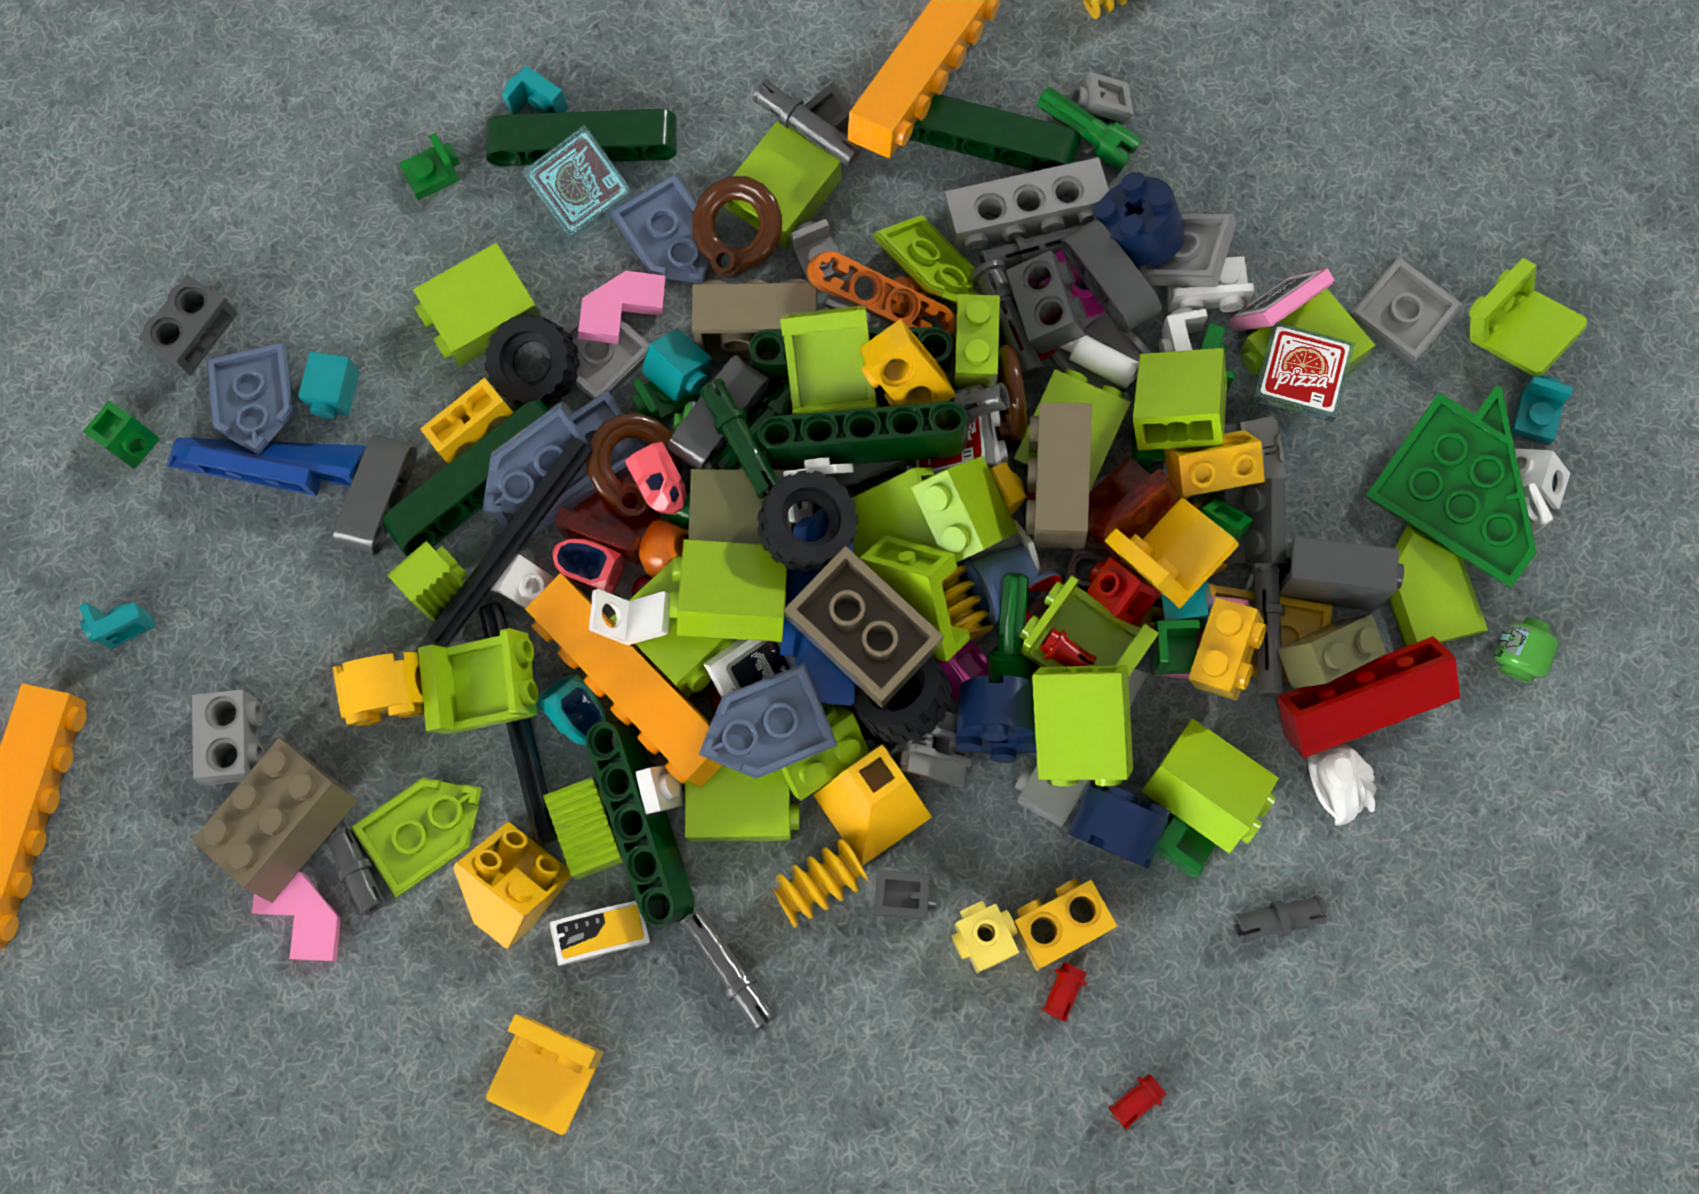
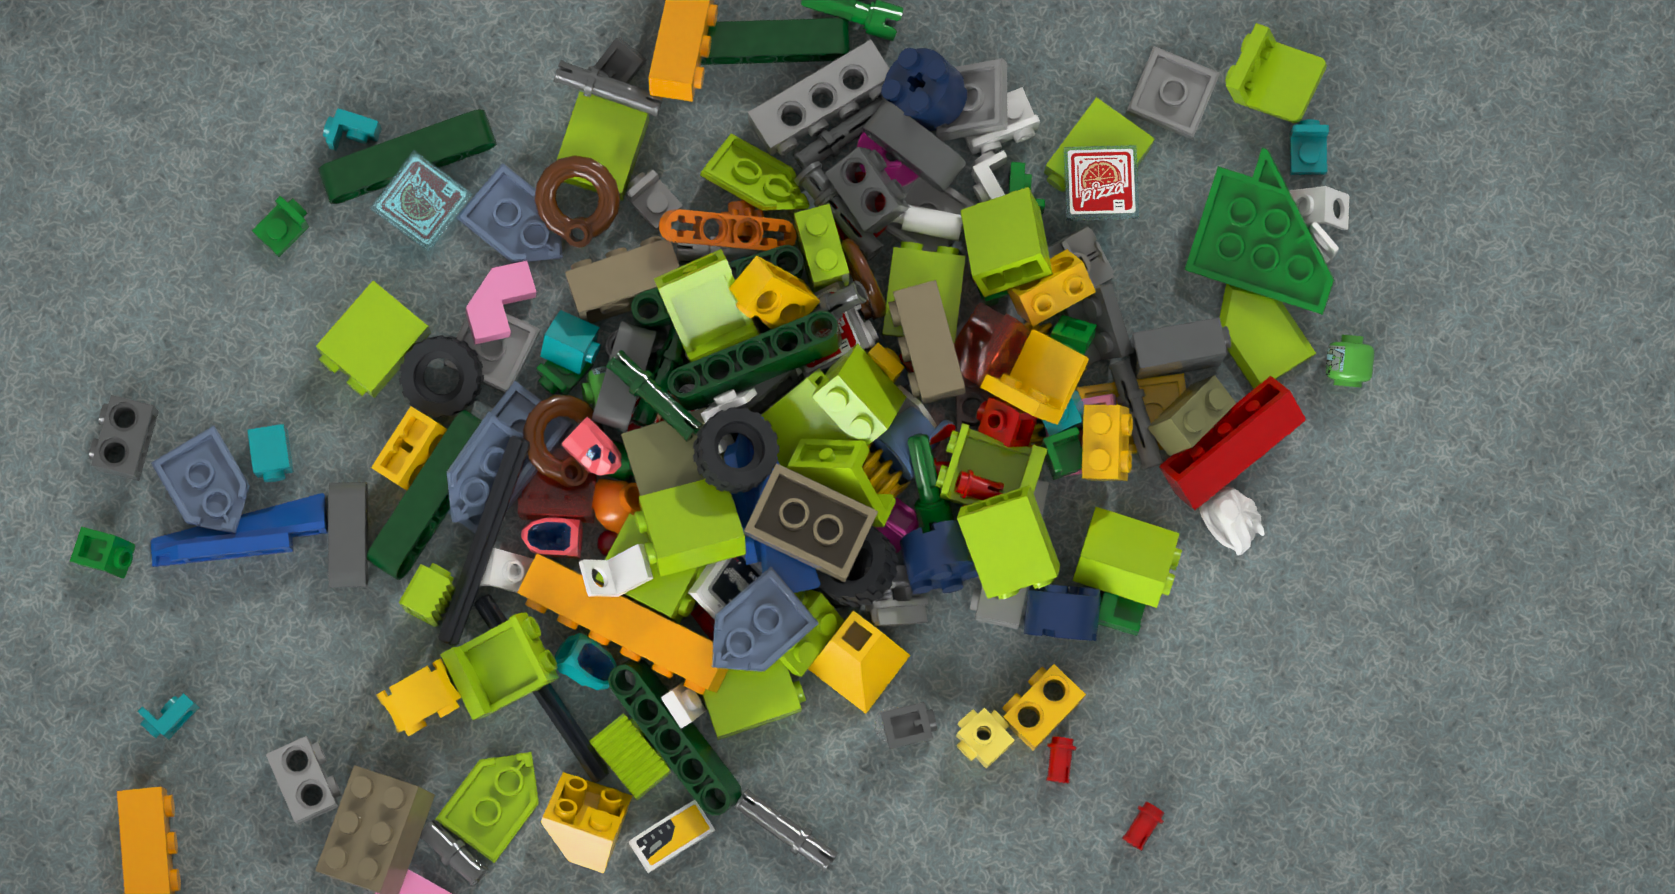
camera: 25 degrees left, 5 degrees up
(819, 882) = (836, 736): yellow piece -> none
(1280, 918) = (1213, 645): dark grey pin -> none
(1281, 300) = (1065, 122): bright pink tile -> none

